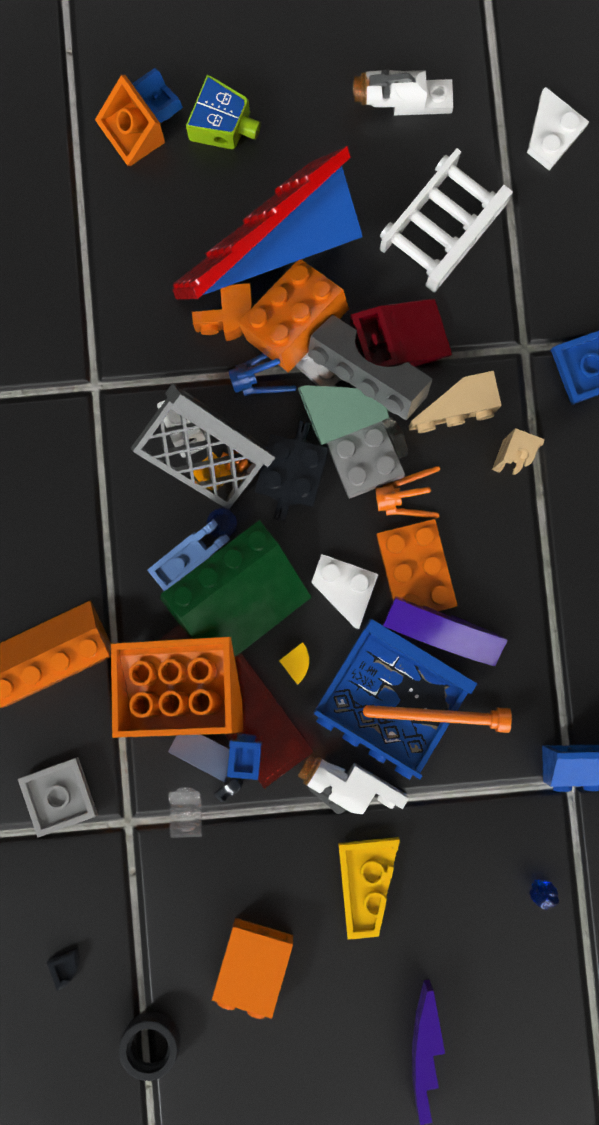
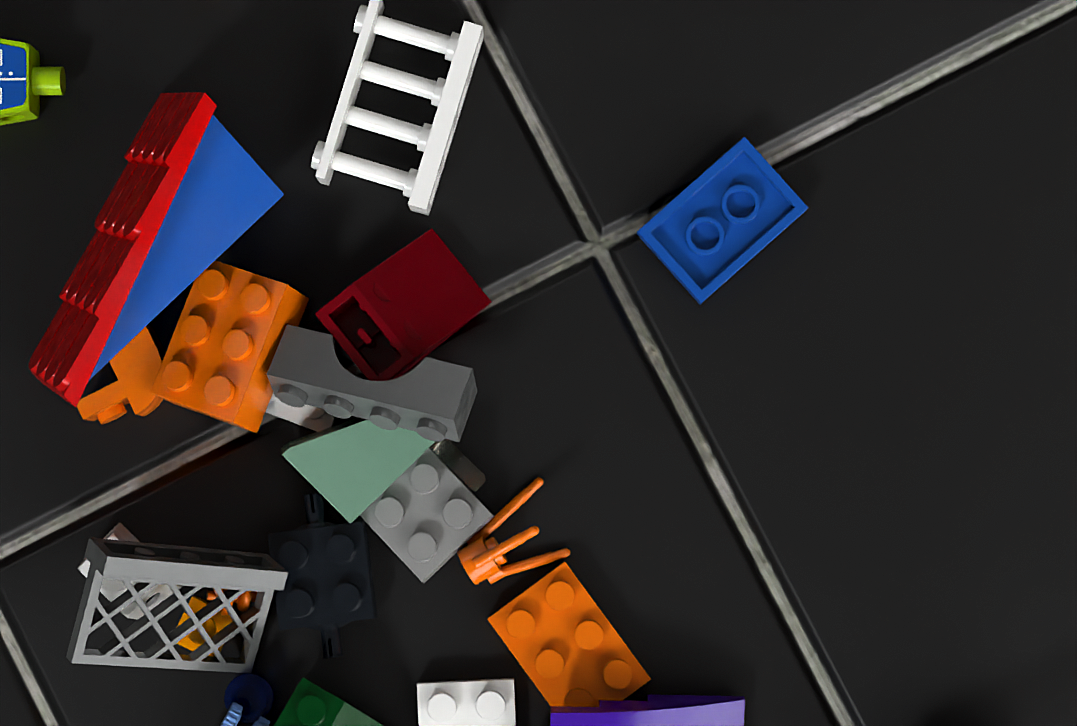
camera: 25 degrees left, 0 degrees up
(244, 377) = (194, 463): blue plant -> none
(468, 398) = (539, 361): tan slope -> none
(517, 448) = (645, 407): tan hinge -> none

